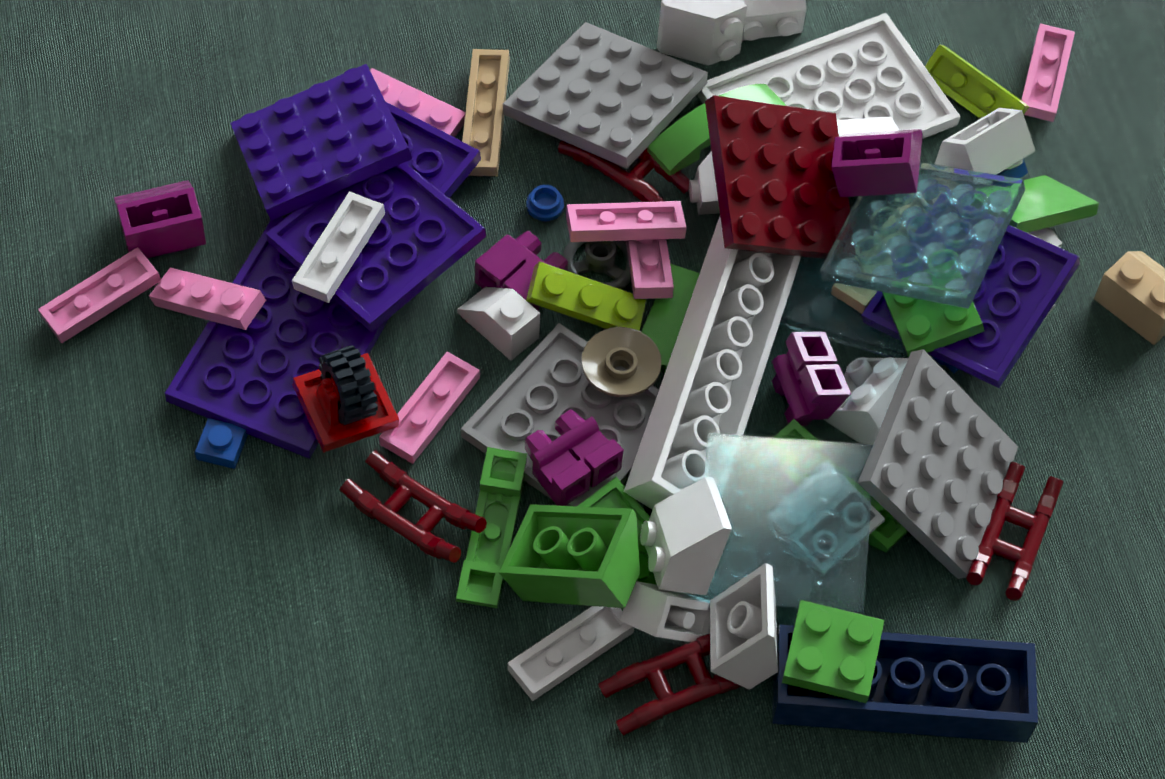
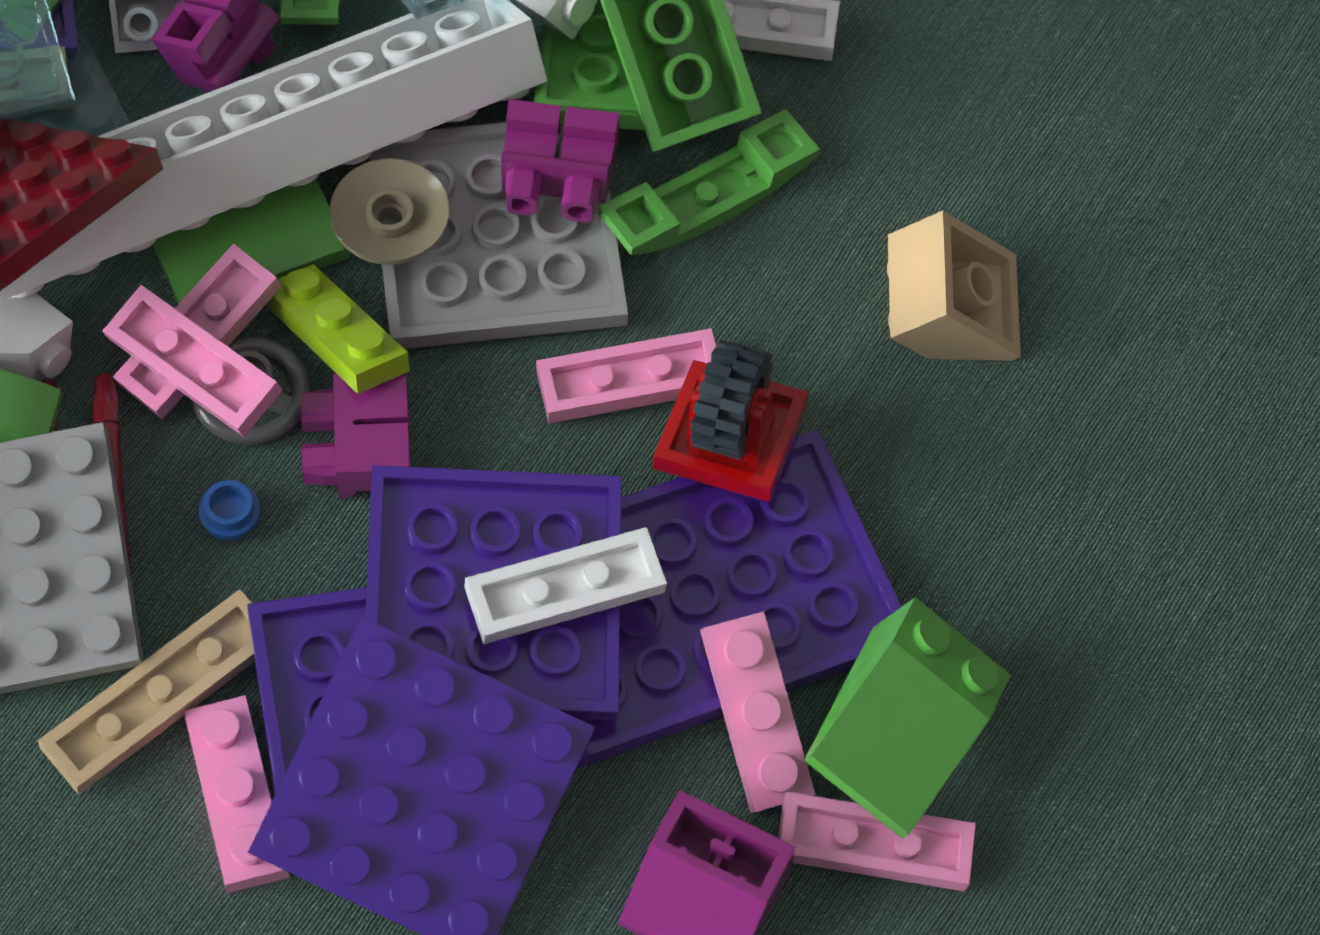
camera: 135 degrees left, 5 degrees up
(129, 337) = (906, 715): none -> bright green slope
(221, 443) = (901, 539): blue plate -> none
(307, 582) = (952, 292): none -> tan slope
(405, 489) = (785, 253): dark red piece -> none
(503, 319) = (443, 402): white slope -> none

